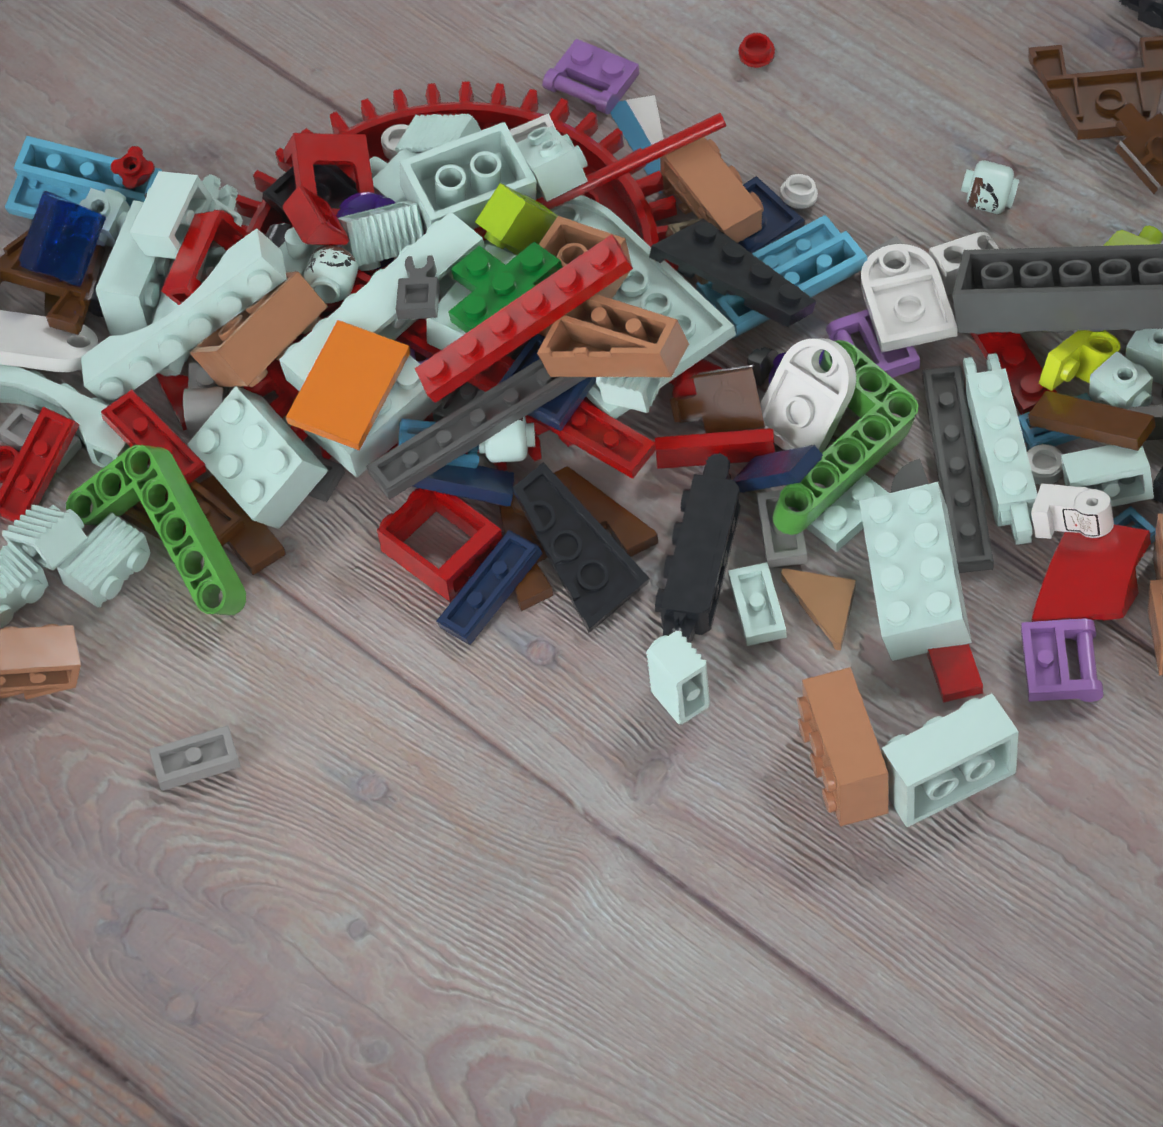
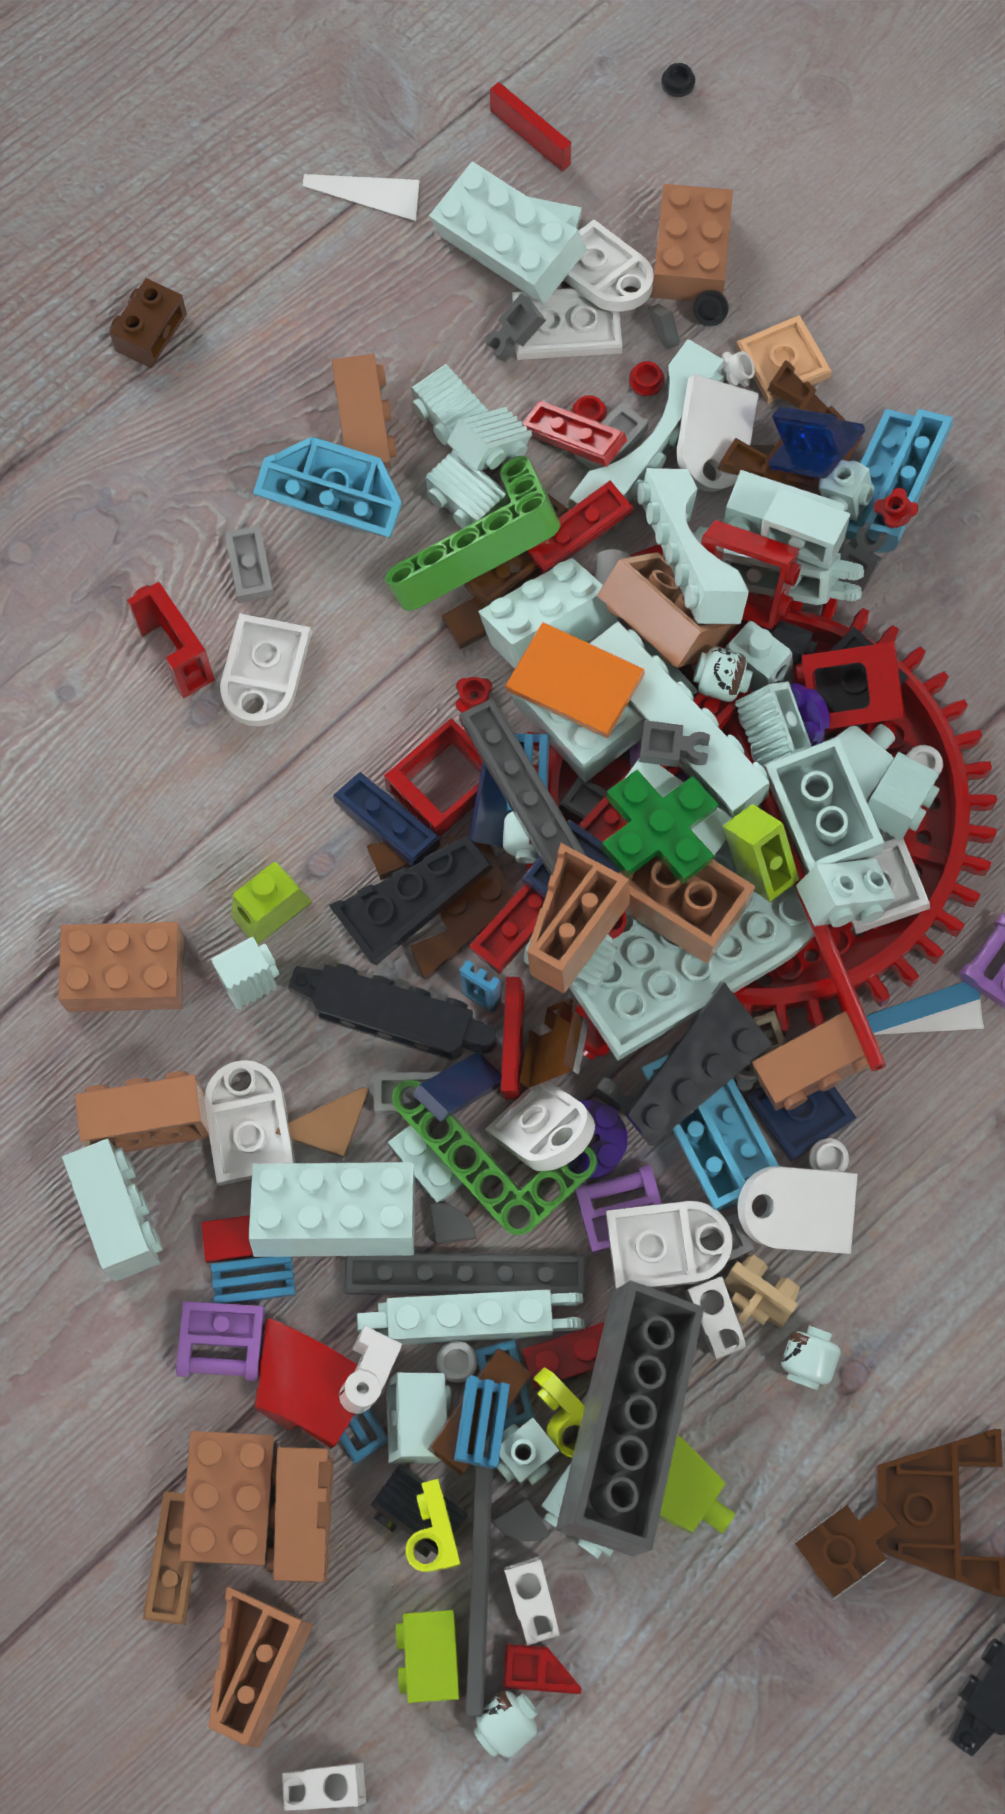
camera: 90 degrees right, 15 degrees up
(108, 665) = (332, 485): none -> medium azure wedge
(314, 219) = (779, 658): red slope -> none
(318, 731) = (265, 666): none -> white tile
(322, 780) = (190, 663): none -> red window
(340, 521) = (471, 685): none -> red plate
(523, 318) = (604, 835): red plate -> none
(592, 667) = (268, 902): none -> lime torso
(668, 468) = (484, 989): none -> dark azure tile
(681, 804) = (121, 967): none -> nougat brick
(757, 604) = (330, 1060): light aqua plate -> none
(818, 654) = (246, 1122): none -> white tile
(854, 199) = (803, 1209): none -> white tile
(939, 222) = (759, 1297): none -> tan hips
(986, 617) = (250, 1264): none -> dark azure tile
(1104, 407) = (494, 1446): none -> dark azure tile

